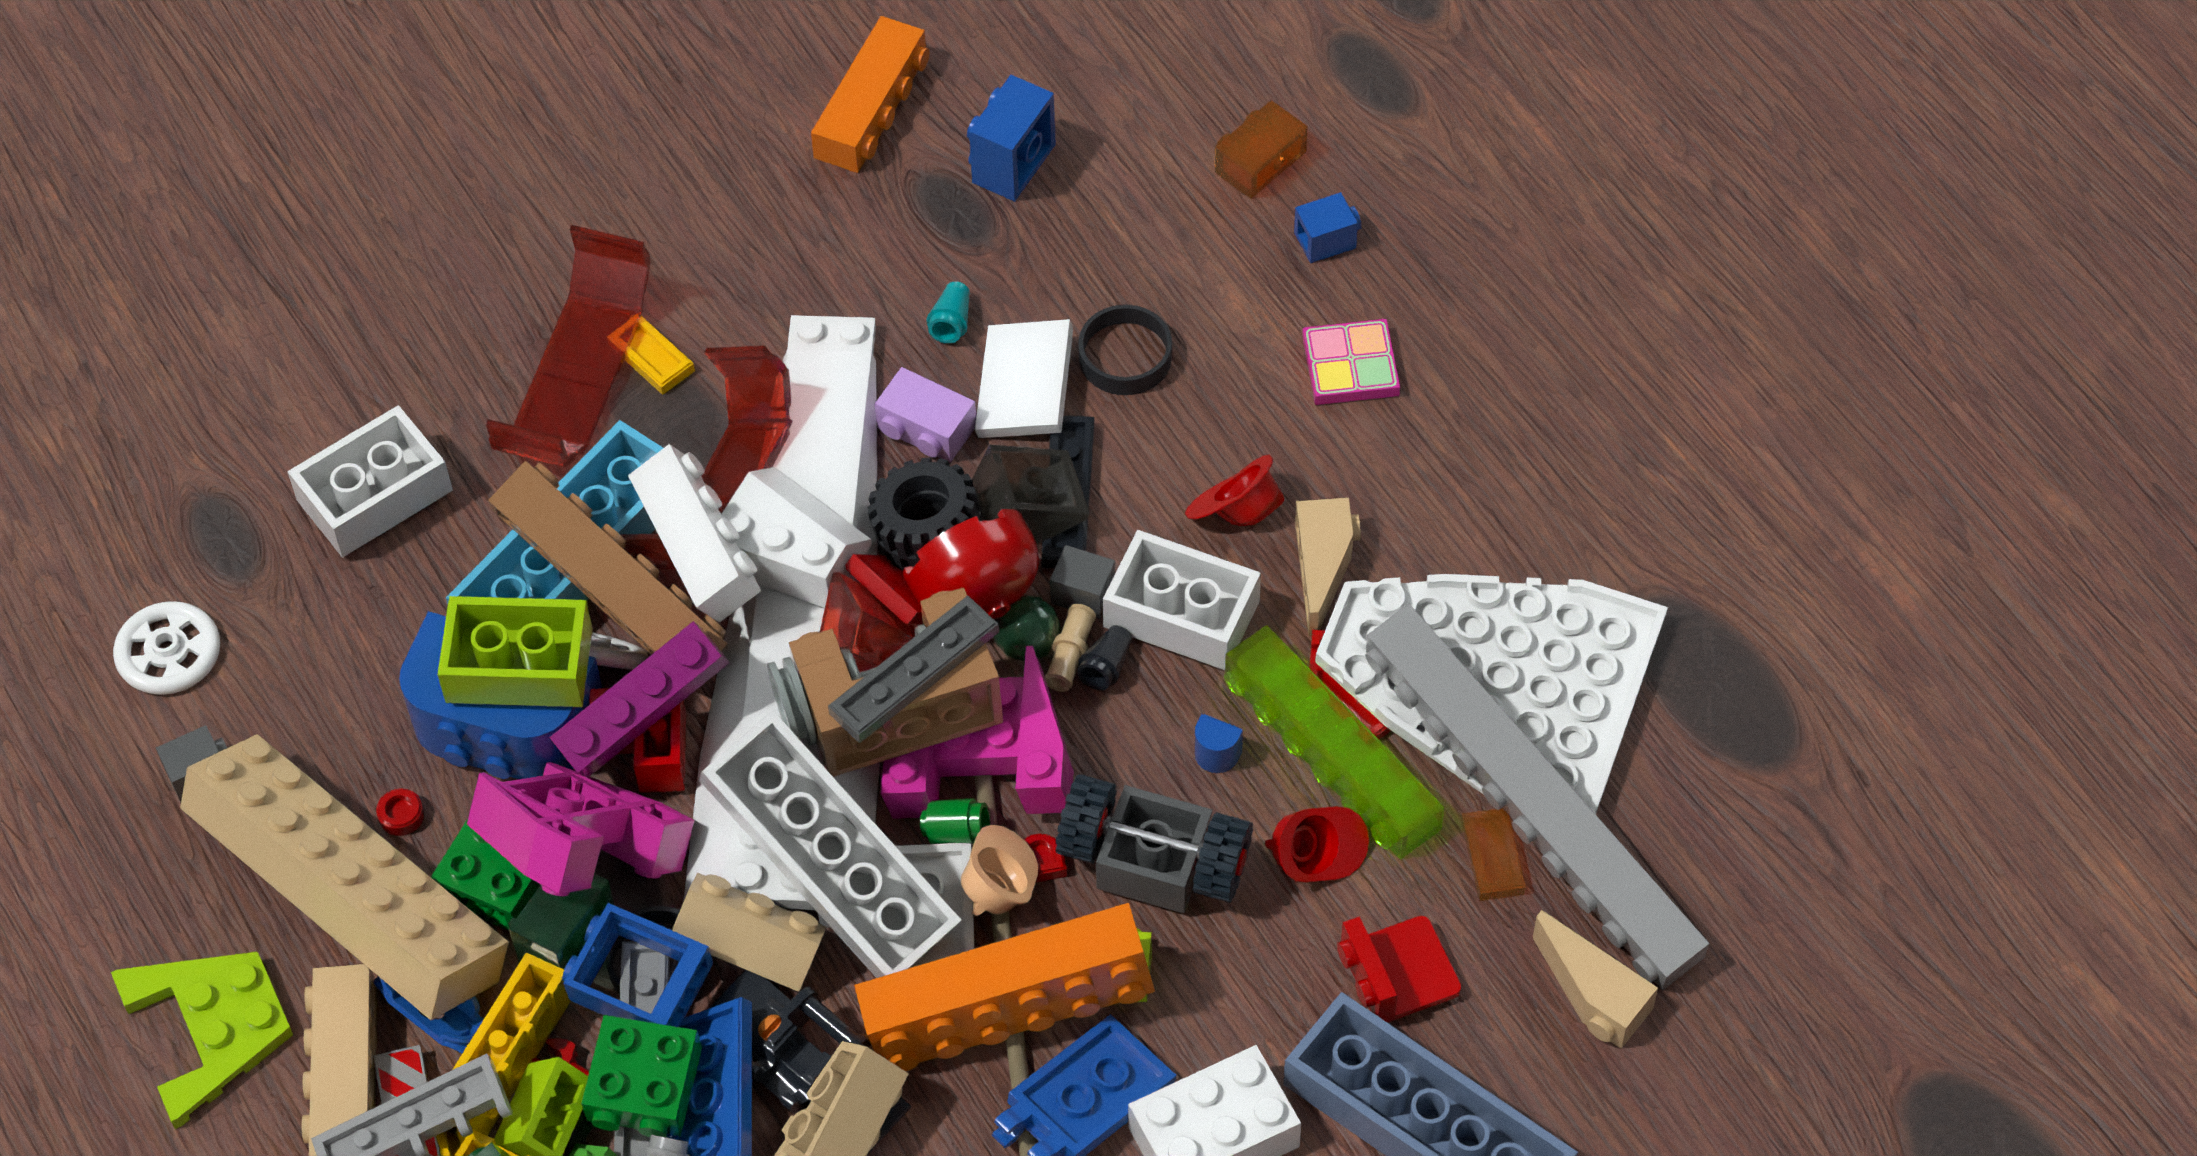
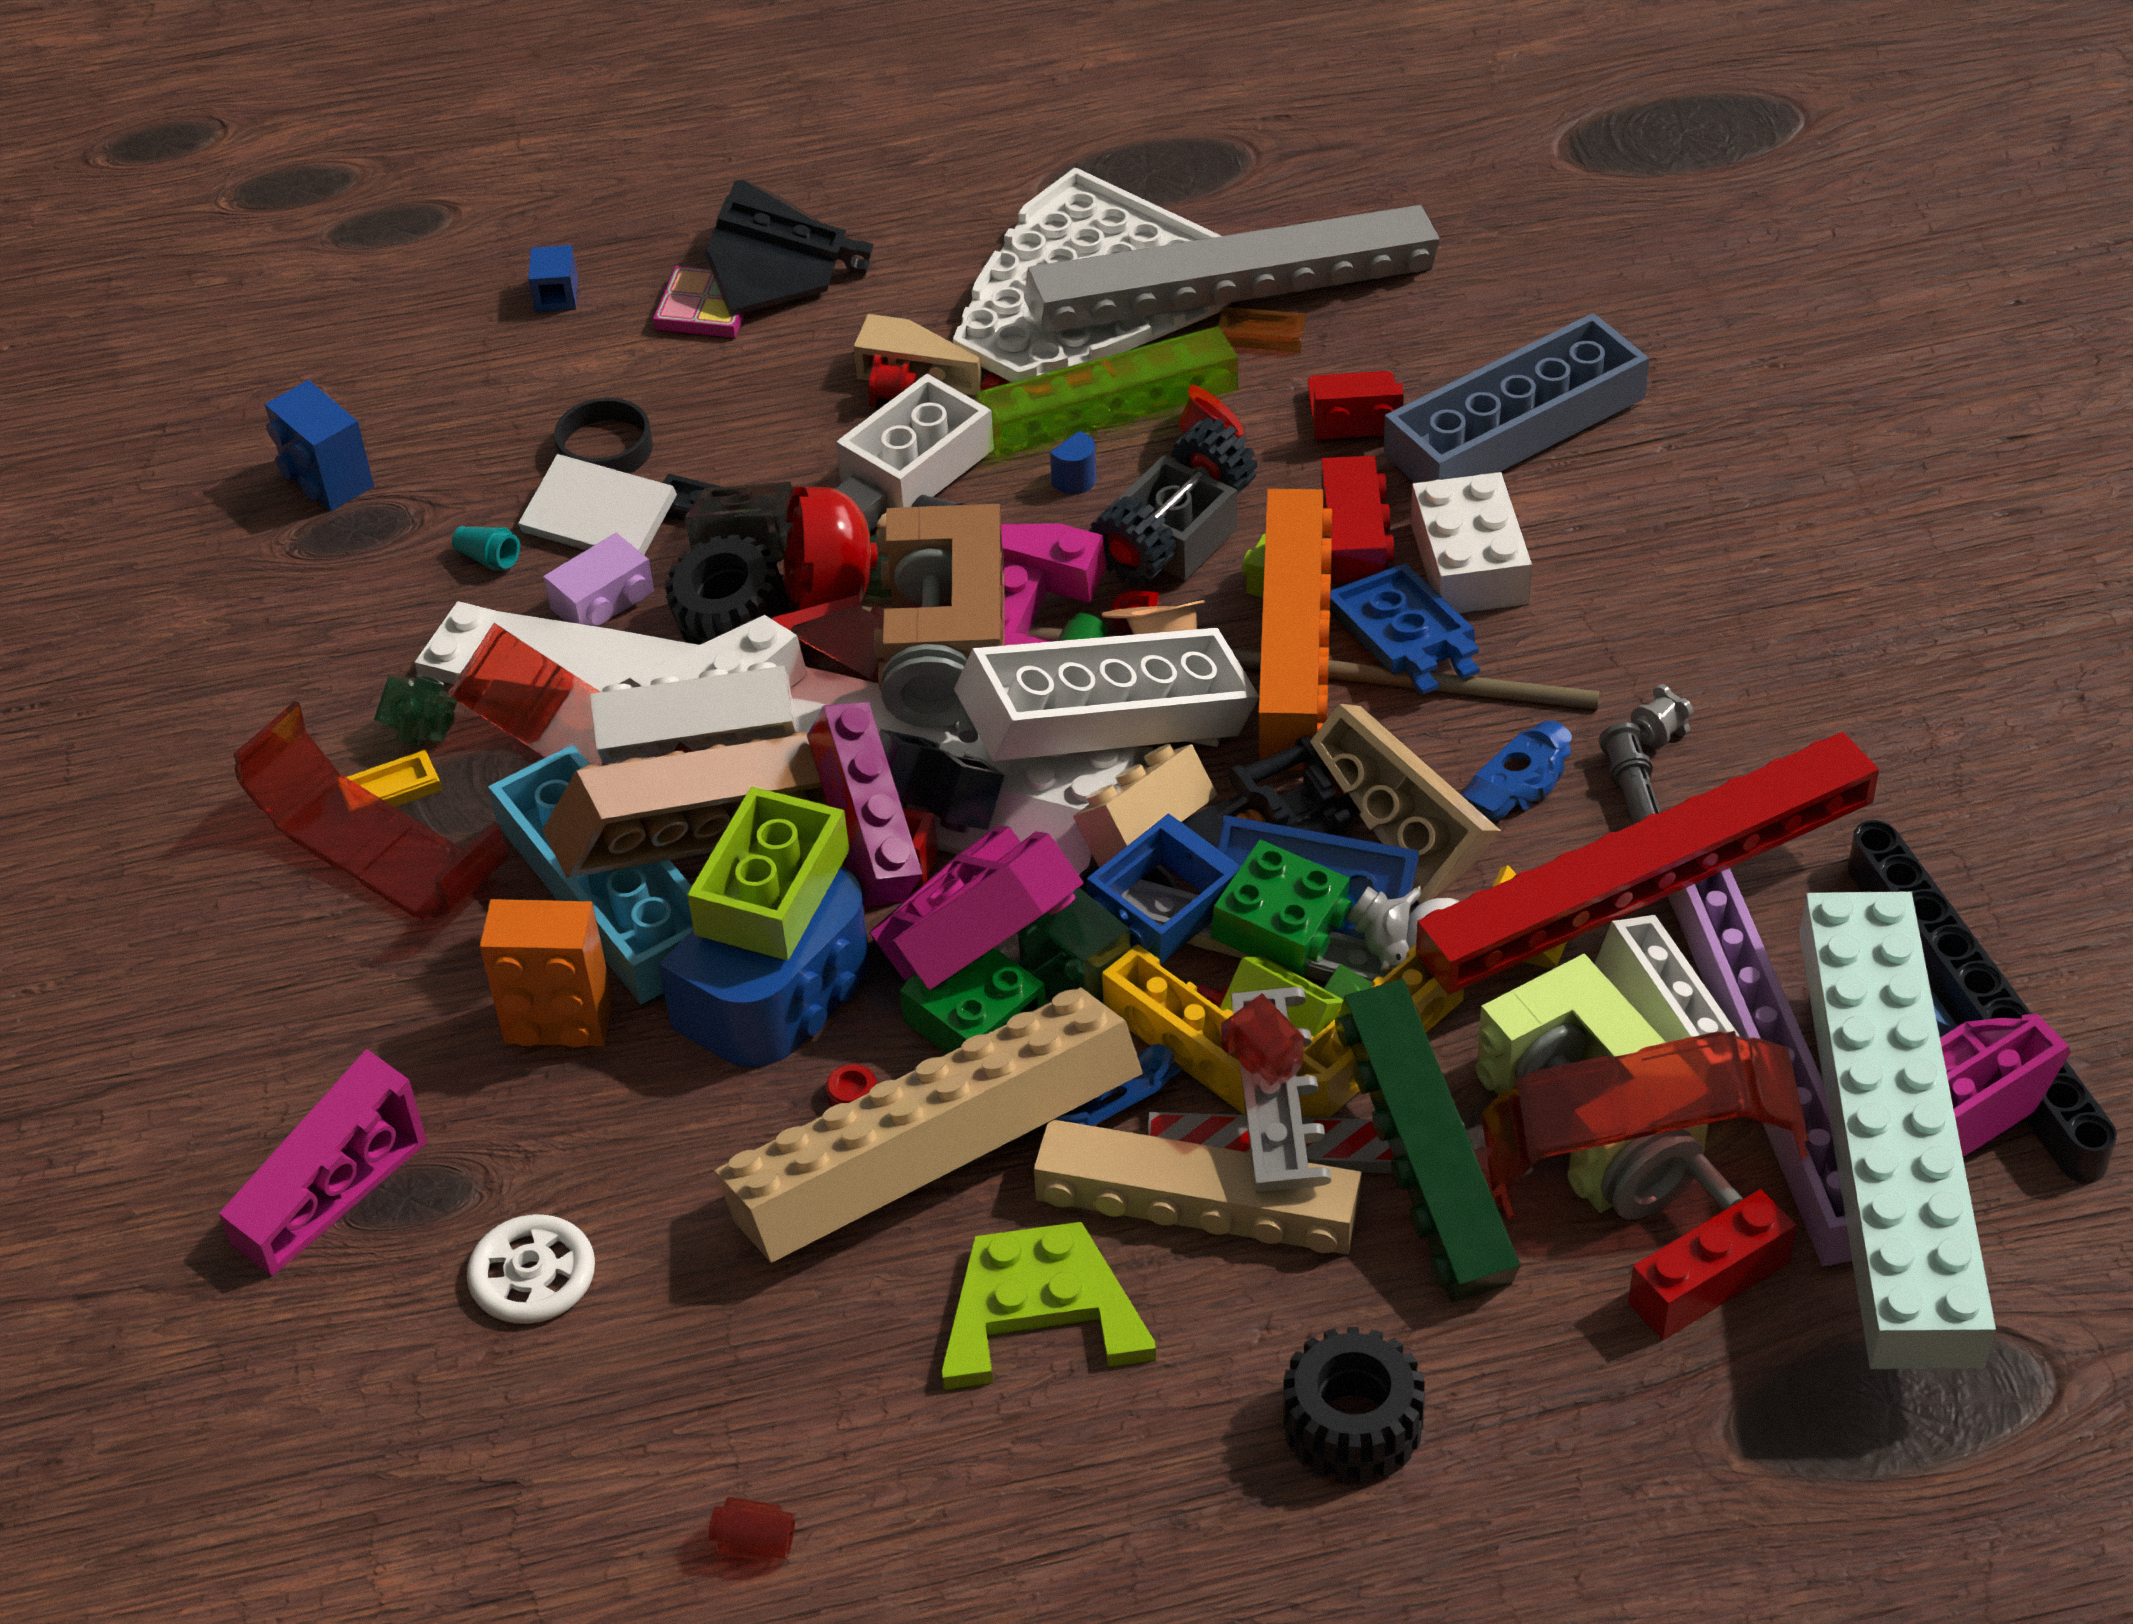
camera: 70 degrees left, 10 degrees down
(186, 751) = (709, 1255): dark grey brick -> none
(215, 468) = (326, 1164): none -> dark pink wedge
(370, 481) = (429, 1023): white brick -> none
(414, 537) = (547, 972): none -> orange brick
(425, 1093) = (1263, 1041): none -> clear red brick
(709, 731) = (950, 786): none -> black brick
(721, 327) = (416, 709): none -> clear green brick
(870, 94) = (181, 549): orange brick -> none
(913, 669) = (966, 555): dark grey tile -> none
(1220, 1011) = (1357, 517): none -> red brick
(1242, 497) = (815, 389): red piece -> none
(1260, 149) = (435, 300): clear orange brick -> none
(1276, 550) = (888, 380): none -> red brick
(1436, 385) = (775, 251): none -> black panel
(1600, 988) = (1415, 293): tan slope -> none

